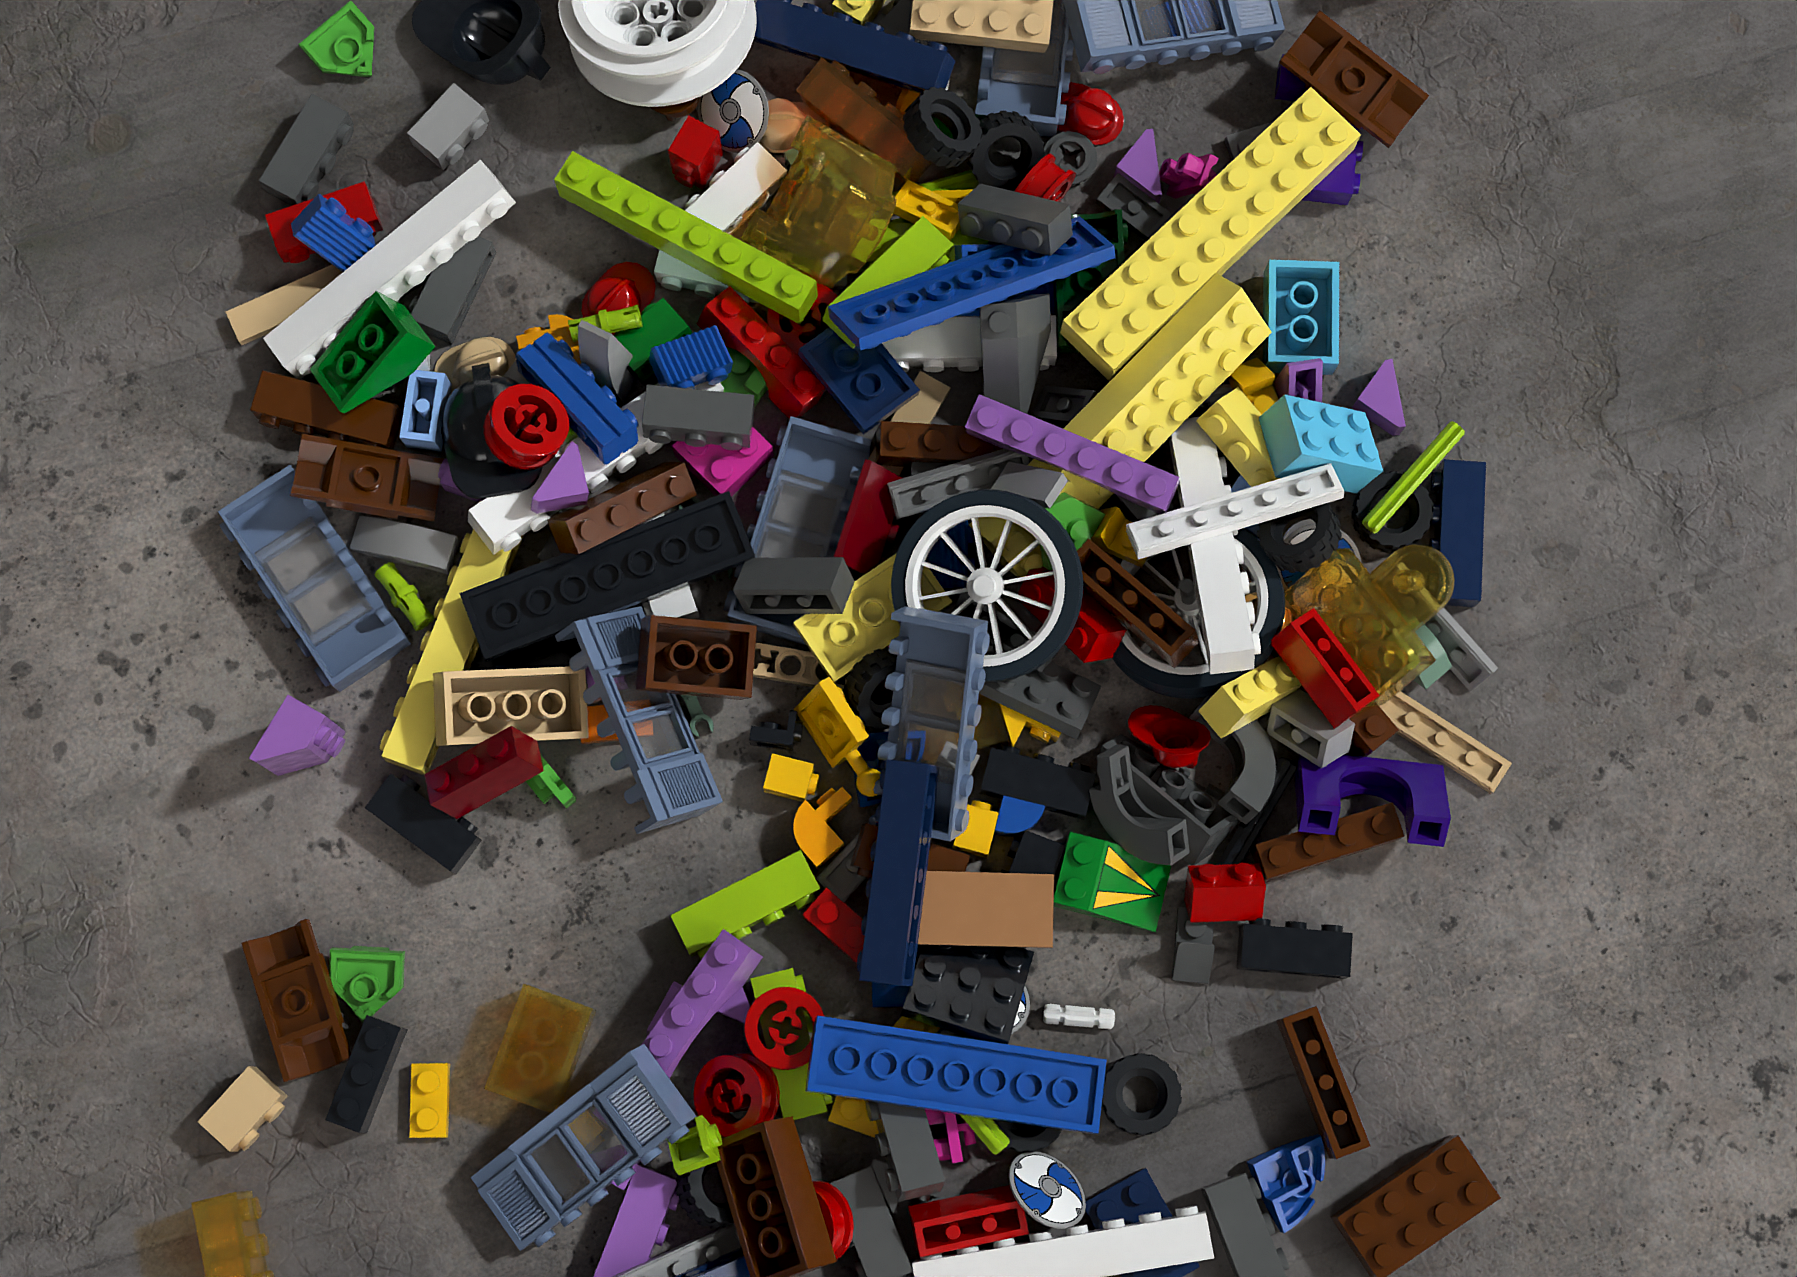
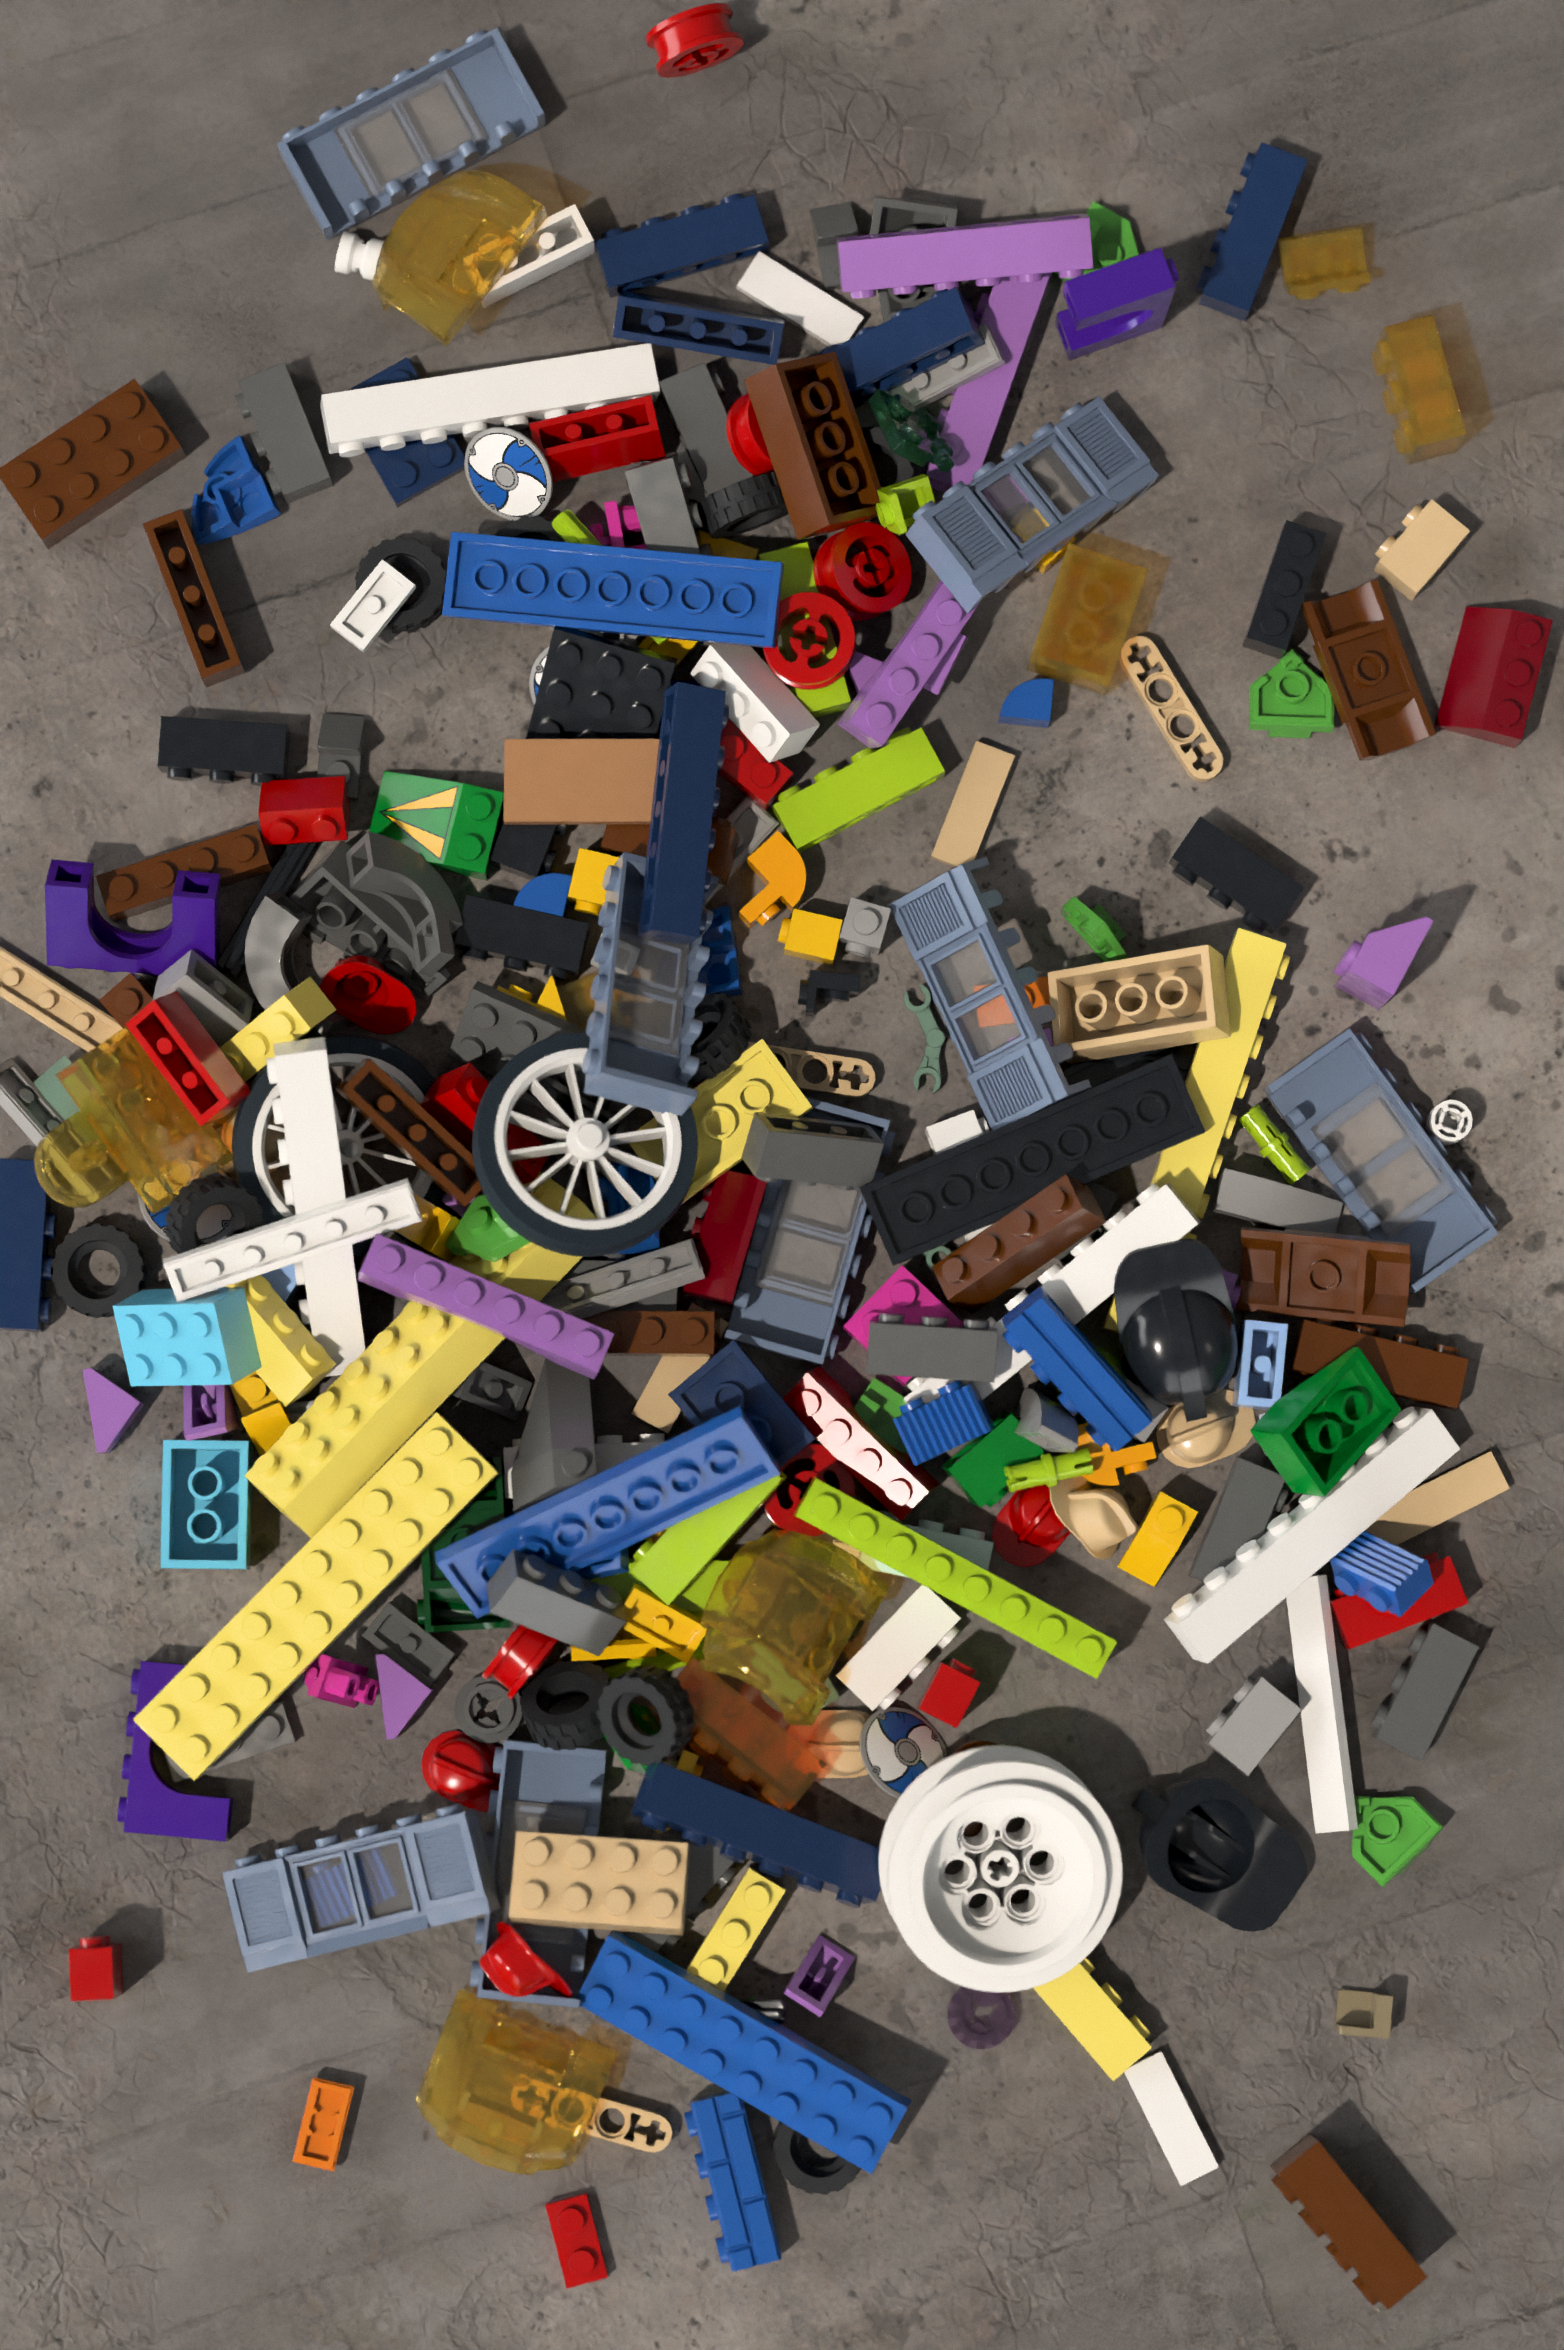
camera: 175 degrees right, 5 degrees up
(187, 996) = (1493, 674): none -> dark red slope
(260, 613) = (1443, 1125): none -> white wheel
(391, 136) = (1321, 1707): none -> white tile
(429, 1100) = (1211, 565): yellow plate -> none
(467, 975) = (1176, 706): none -> tan beam
(484, 772) = (1165, 921): dark red brick -> none
(517, 279) = (1157, 1538): none -> yellow slope
(537, 442) = (1111, 1304): red wheel -> none
(564, 485) = (1085, 1257): medium lavender slope -> none
(570, 291) = (1092, 1515): none -> tan piece
(595, 977) = (1029, 704): none -> blue brick
(648, 890) = (972, 805): none -> tan tile
(688, 1216) = (911, 434): none -> clear green plate
(696, 657) = (924, 1063): reddish brown brick -> none
(744, 783) = (864, 927): none -> light grey brick
(832, 977) = (756, 700): none -> white brick
(837, 731) = (755, 985): yellow plate -> none
(840, 1153) = (743, 506): none -> black tyre
(1031, 482) = (536, 1268): light grey tile -> none
(1079, 1016) = (472, 672): white axle -> none
(1166, 1069) = (373, 606): none -> white plate
(1353, 79) = (141, 1802): reddish brown piece -> none
(1413, 477) = (74, 1305): lime axle -> none

